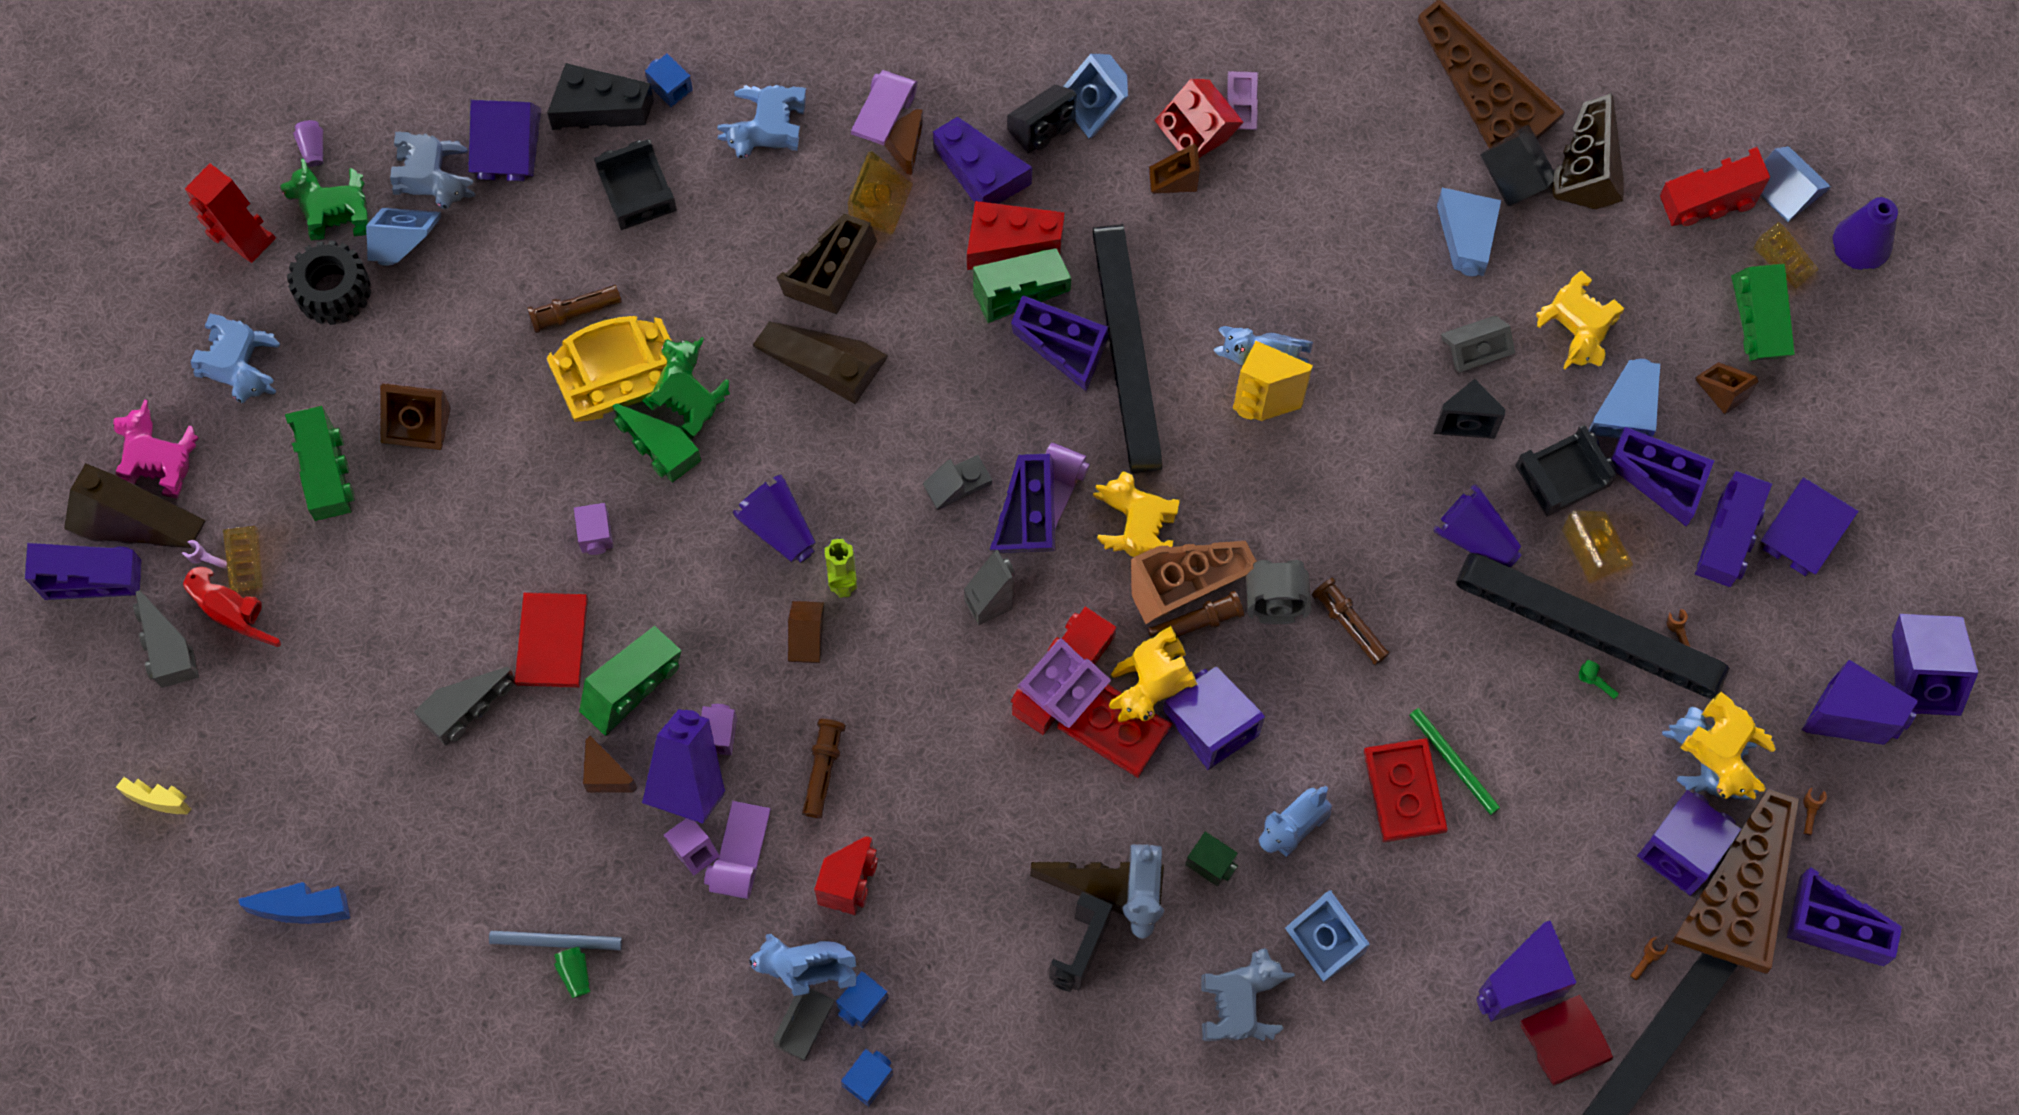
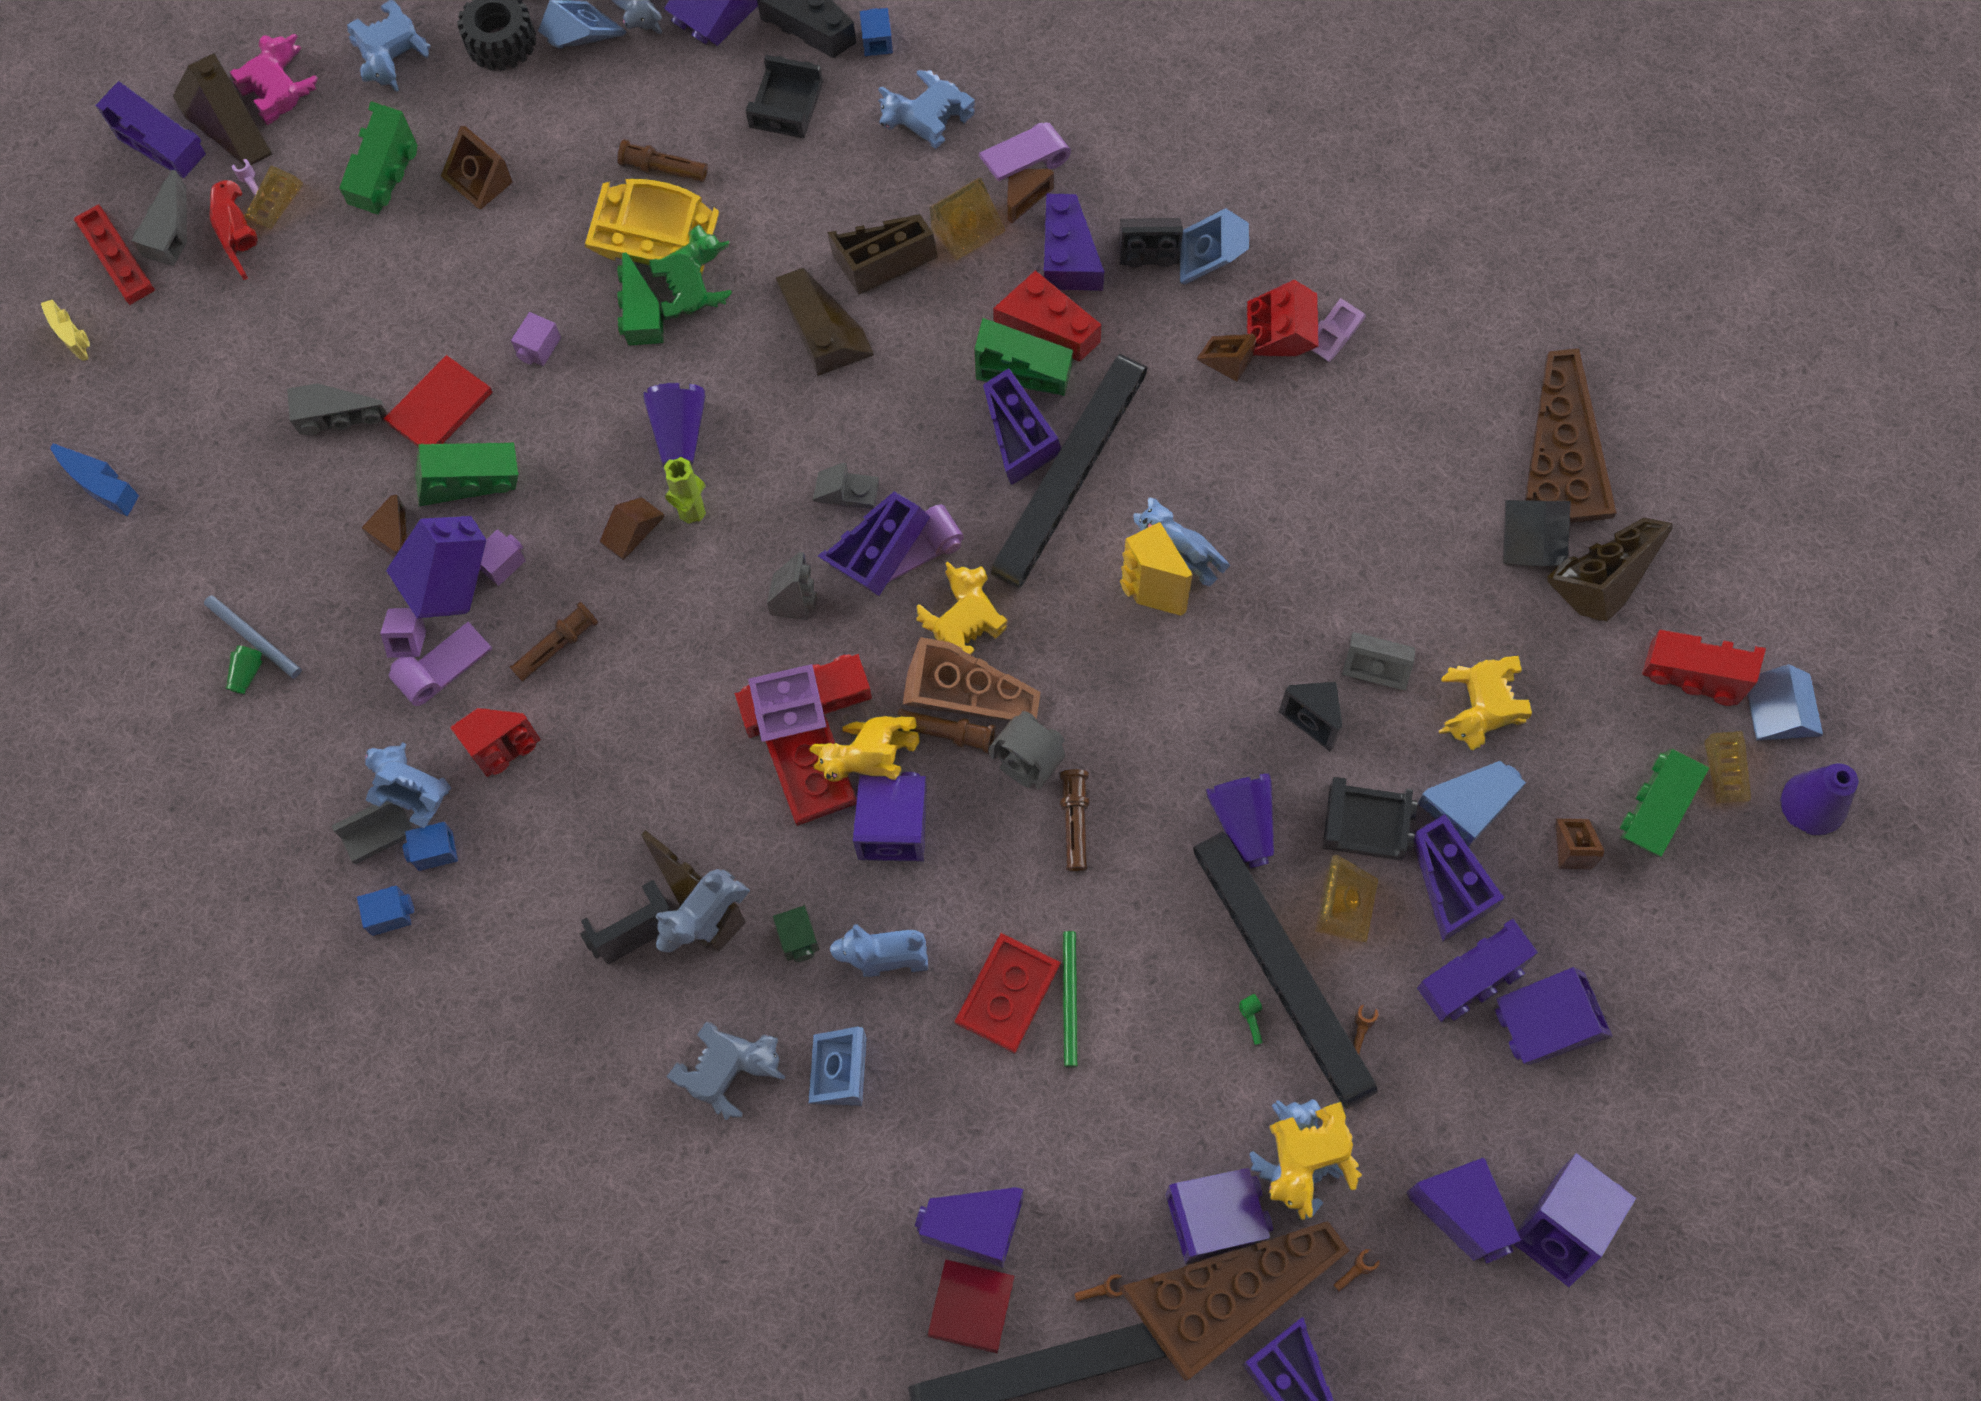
camera: 40 degrees right, 0 degrees up
(135, 702) = (114, 254): none -> red tile
(1468, 229) = (1448, 560): medium blue slope -> none

